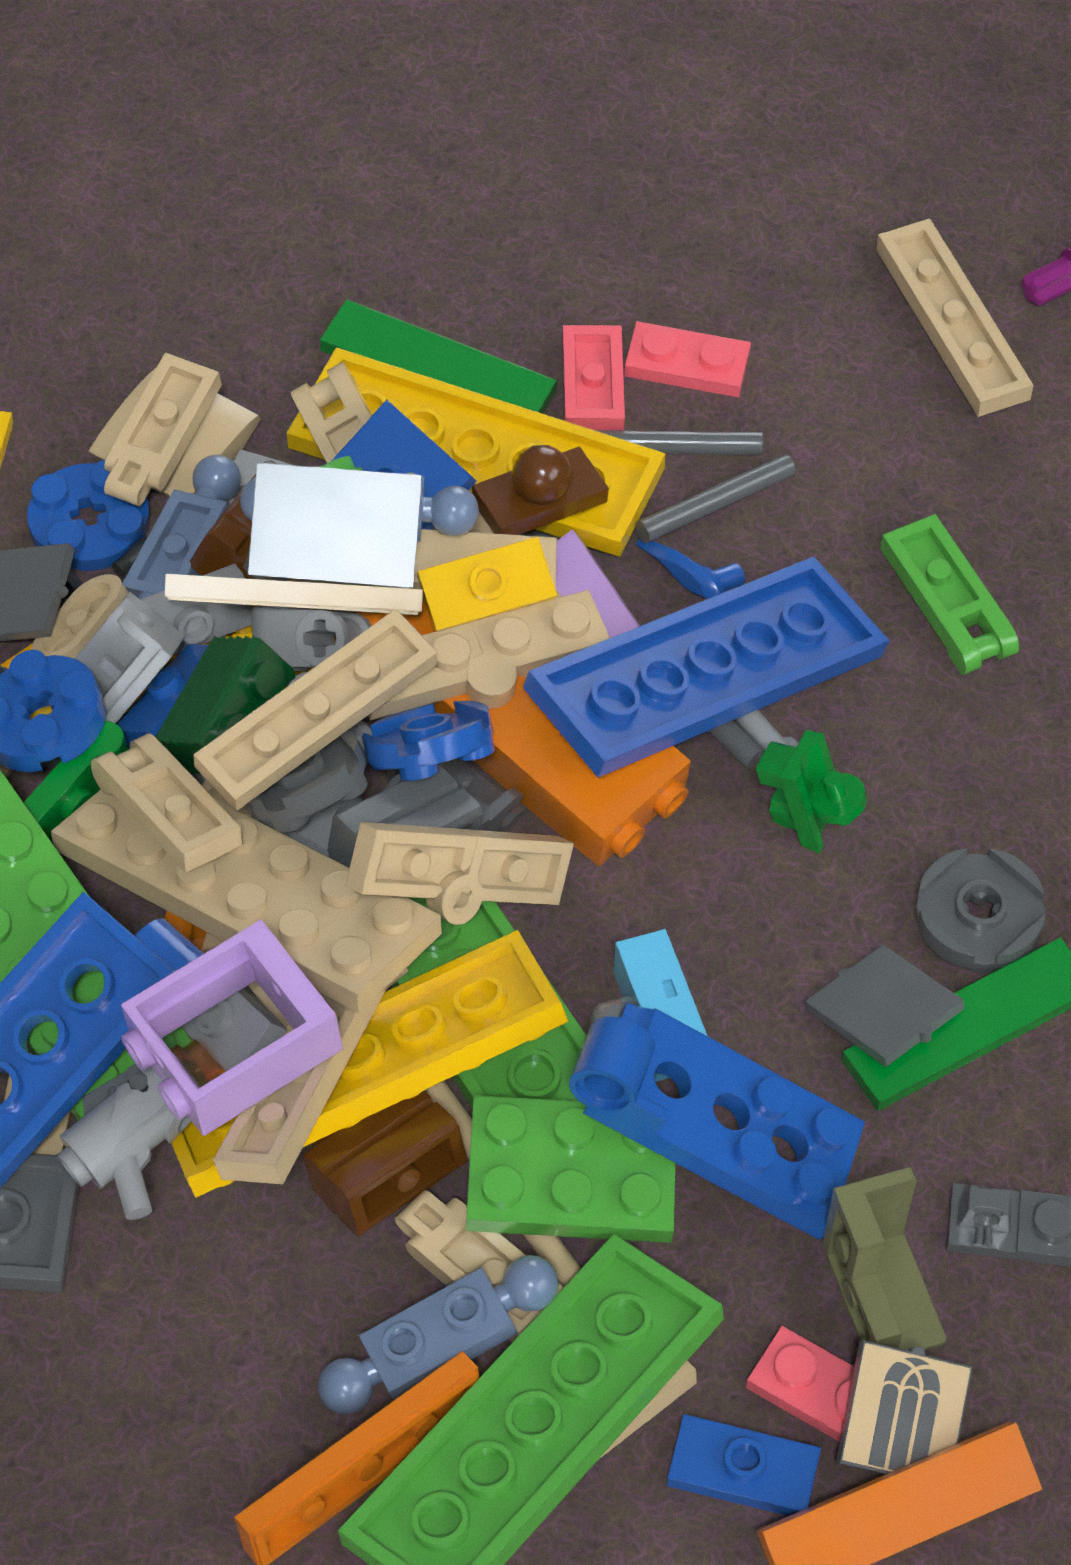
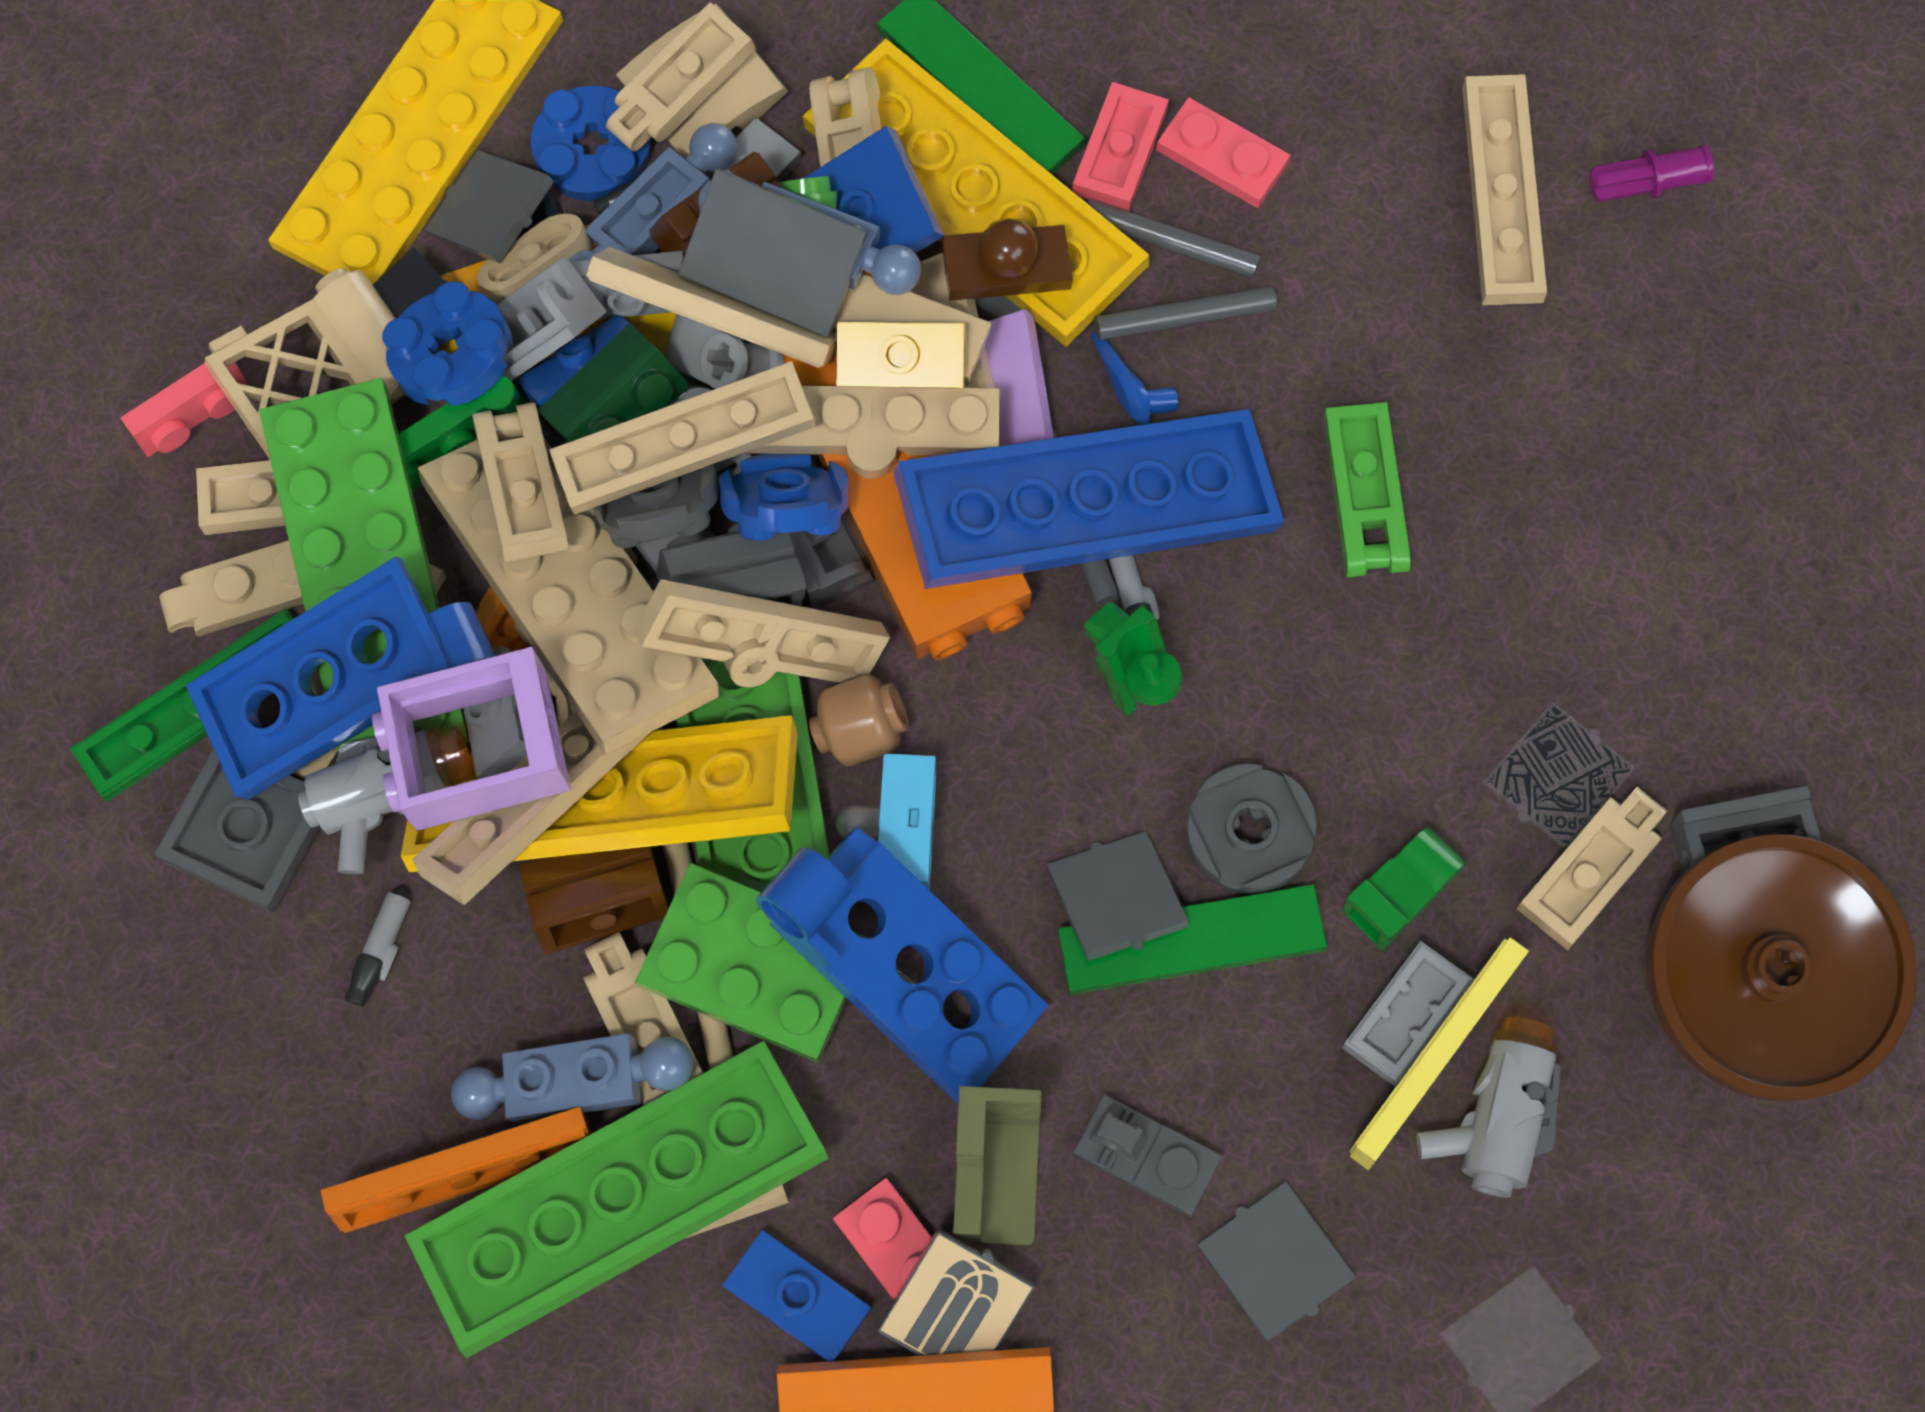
camera: 25 degrees right, 15 degrees up
(186, 1292) = (379, 948): none -> piece
(573, 928) = (859, 720): none -> medium nougat head

